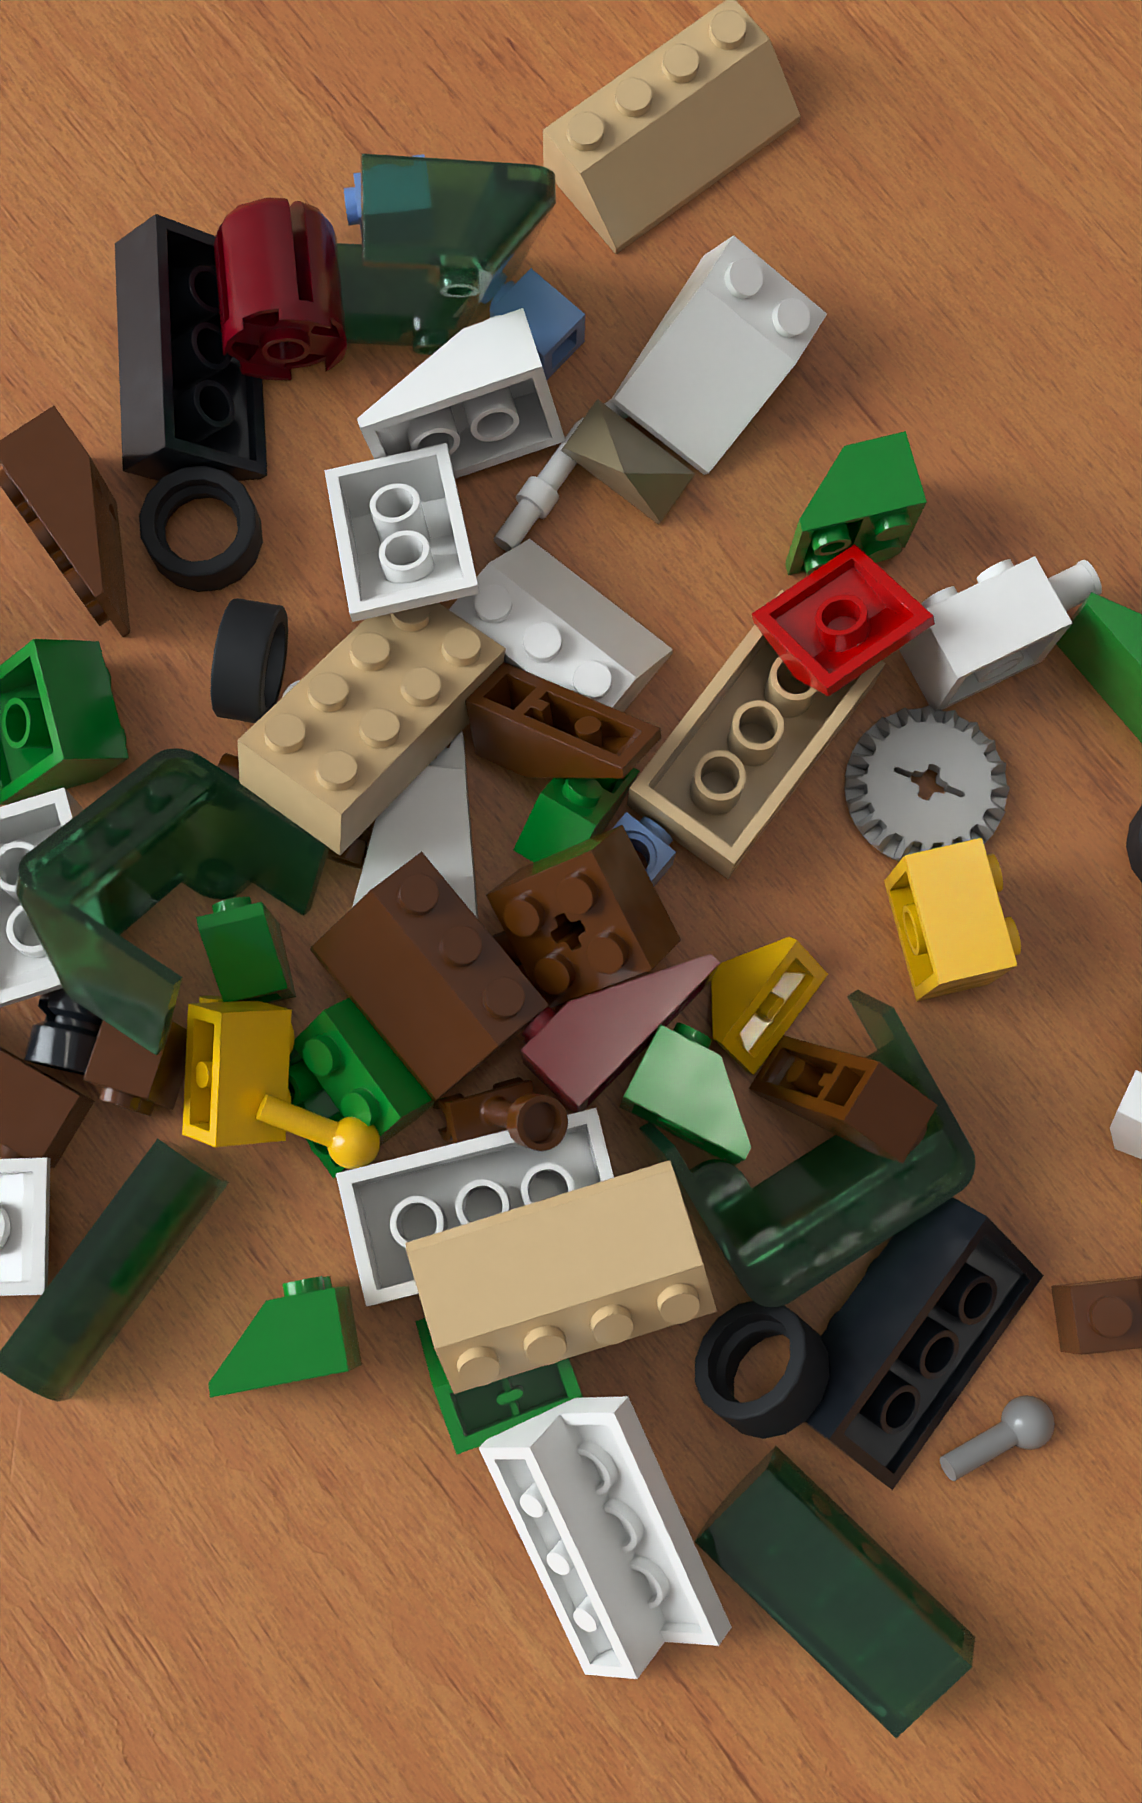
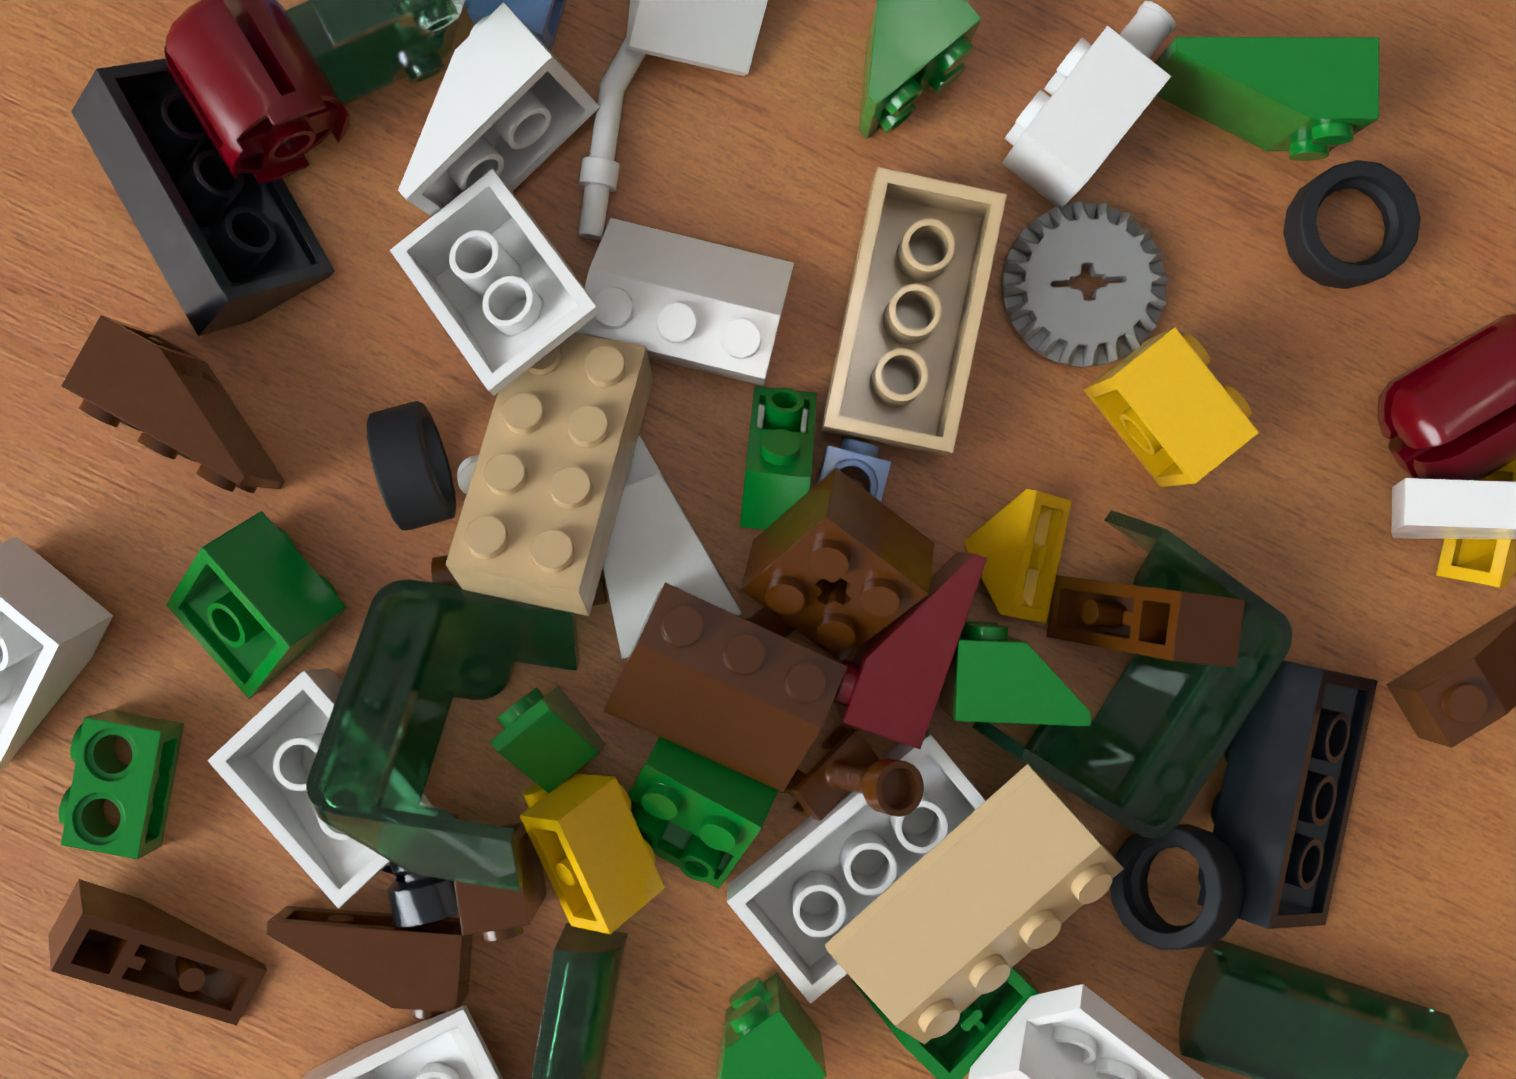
camera: 25 degrees left, 10 degrees up
(181, 488) = (252, 343): black tyre -> none
(348, 1140) = (720, 864): yellow bar -> none
(553, 730) = (730, 403): reddish brown slope -> none
(627, 461) = (667, 99): dark tan slope -> none
(841, 621) = (952, 176): red slope -> none
(1024, 1424) = (1413, 815): light grey bar -> none

